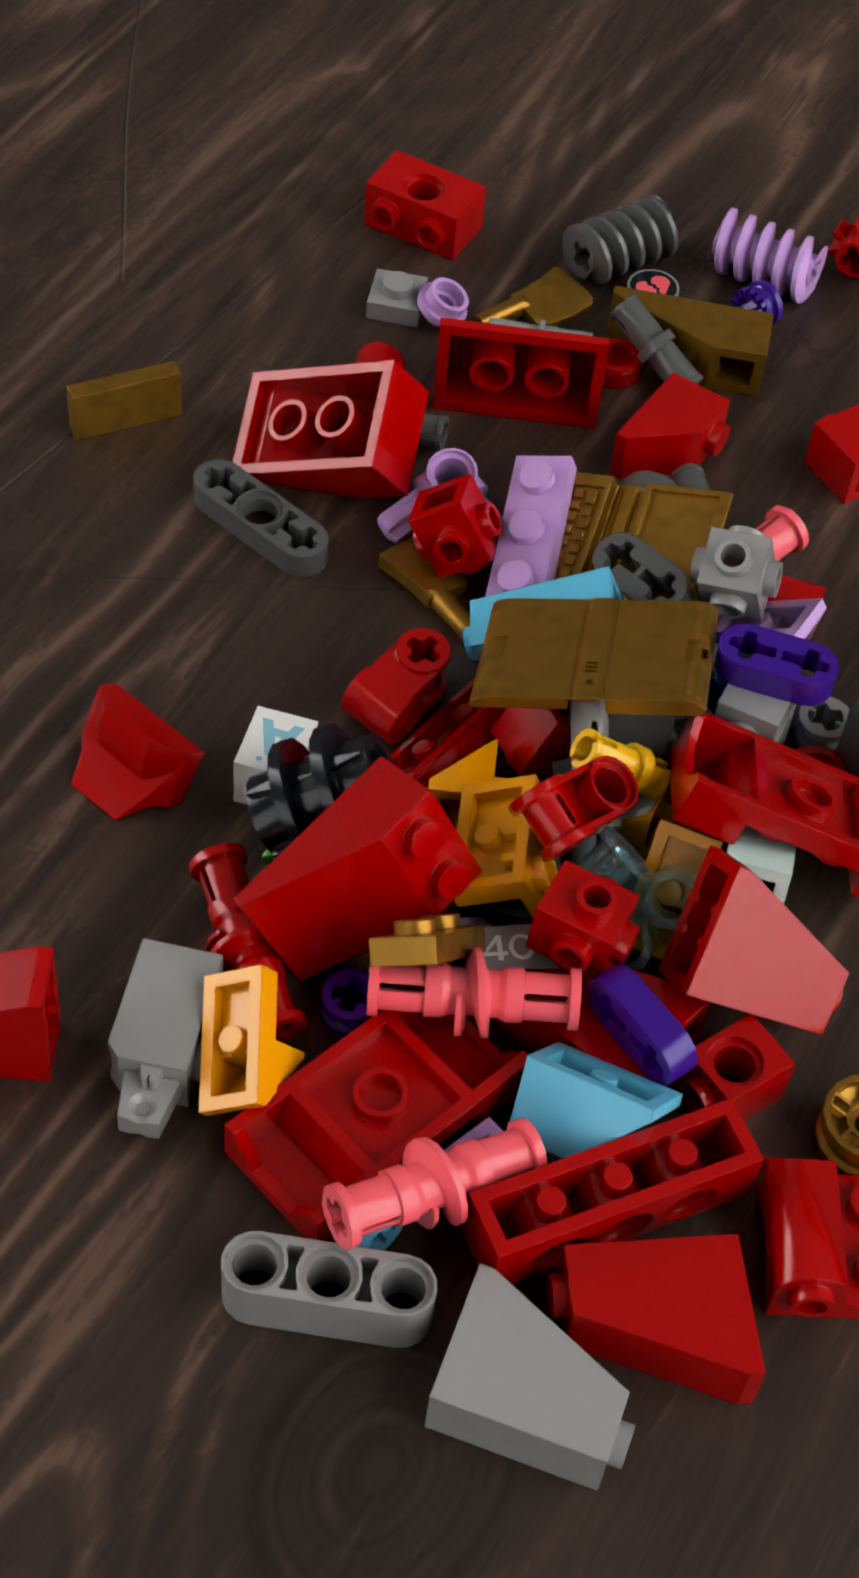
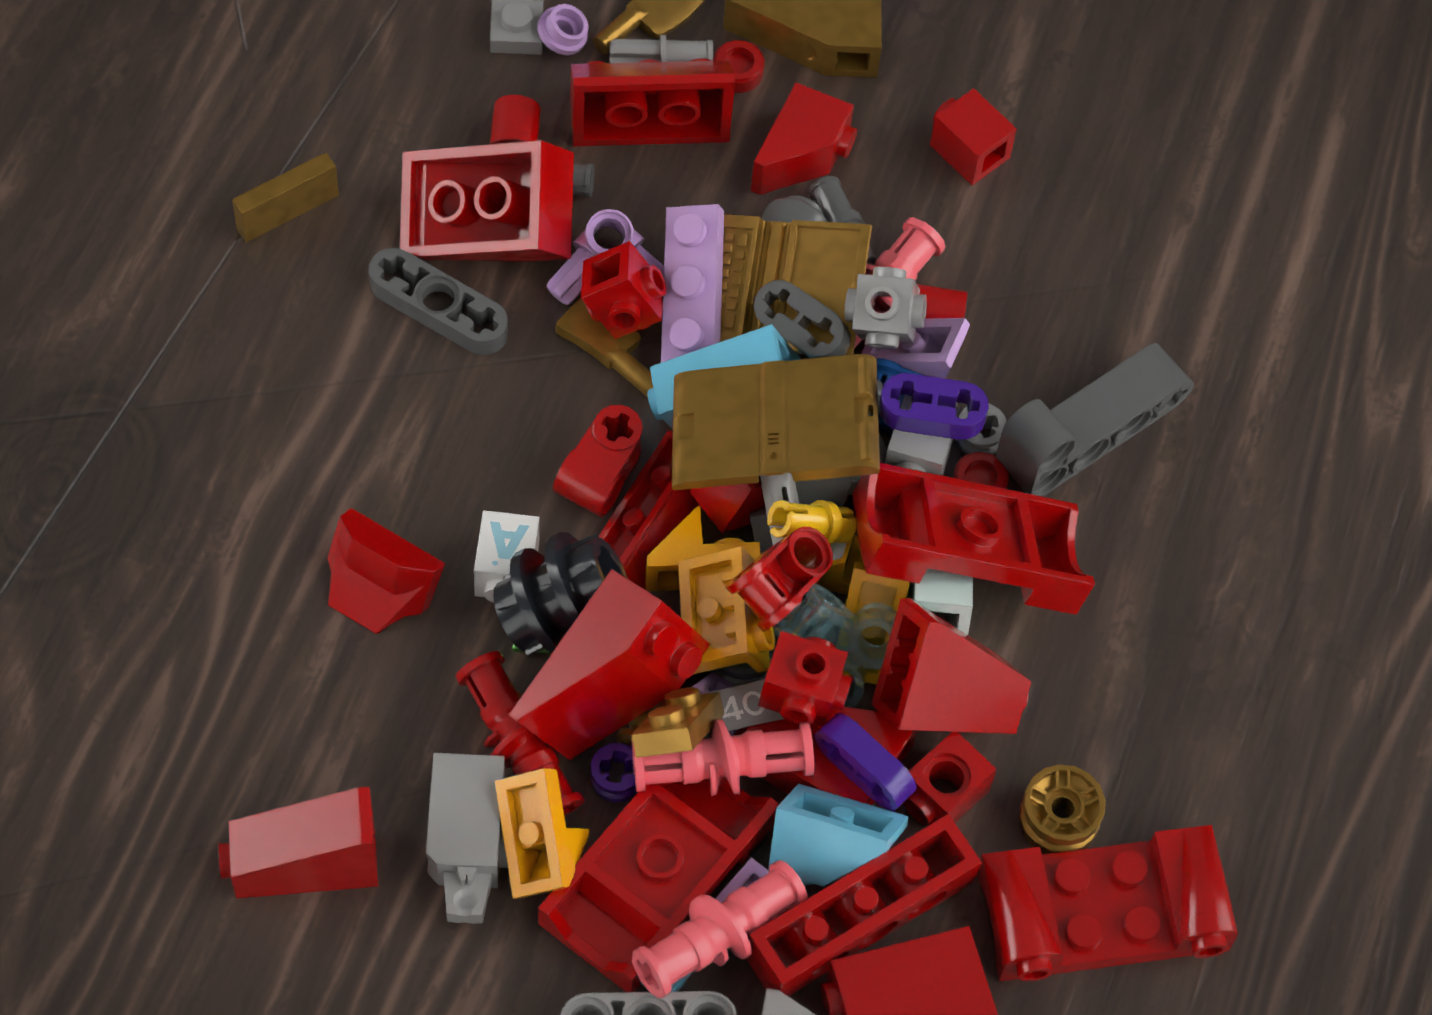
camera: 10 degrees left, 10 degrees up
(652, 341) = (773, 48): dark grey pin -> none

